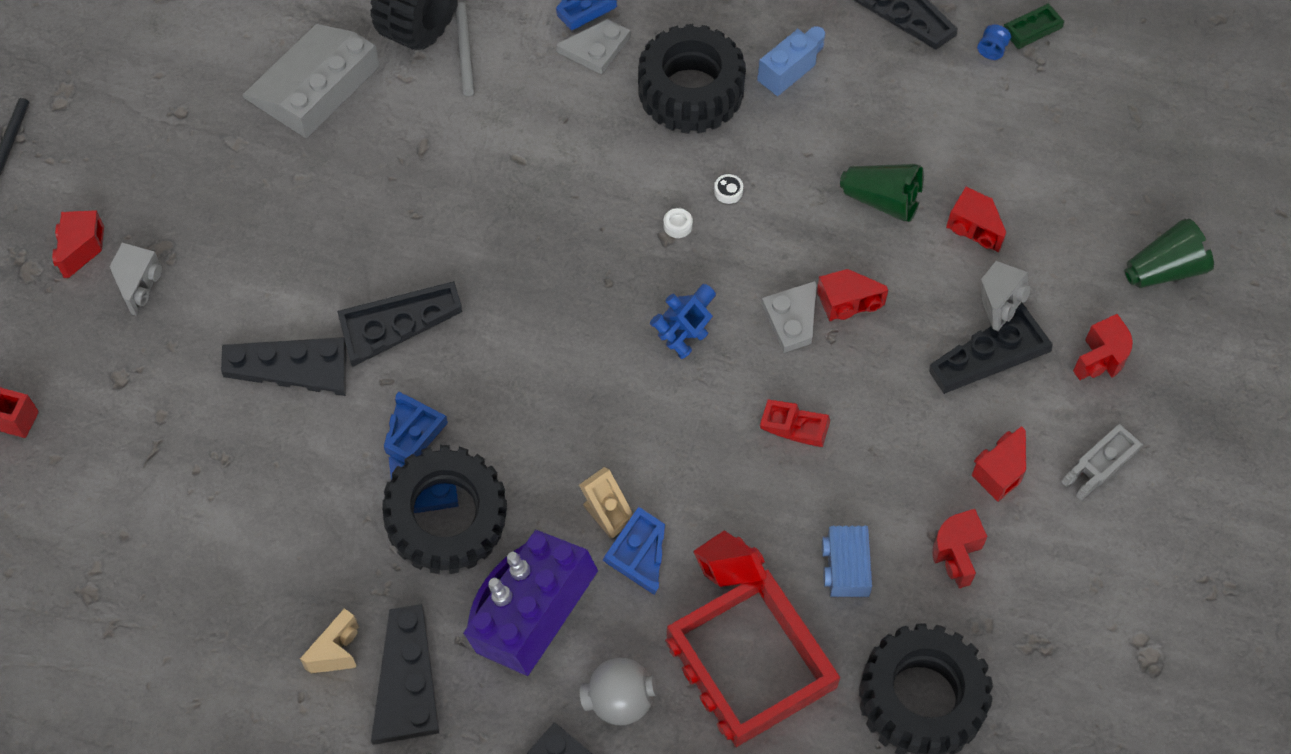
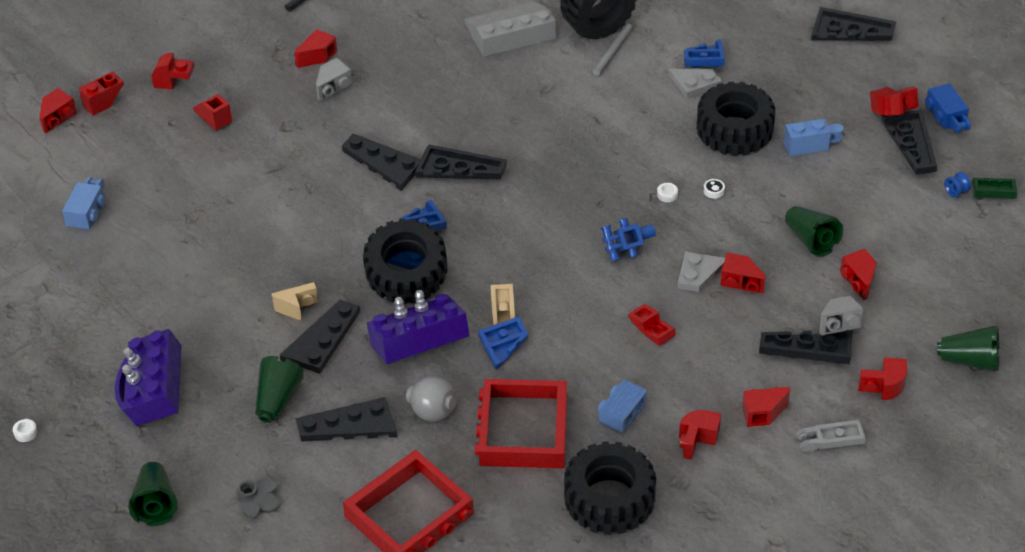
camera: 35 degrees right, 15 degrees down
(730, 561) = (548, 366): red slope -> none

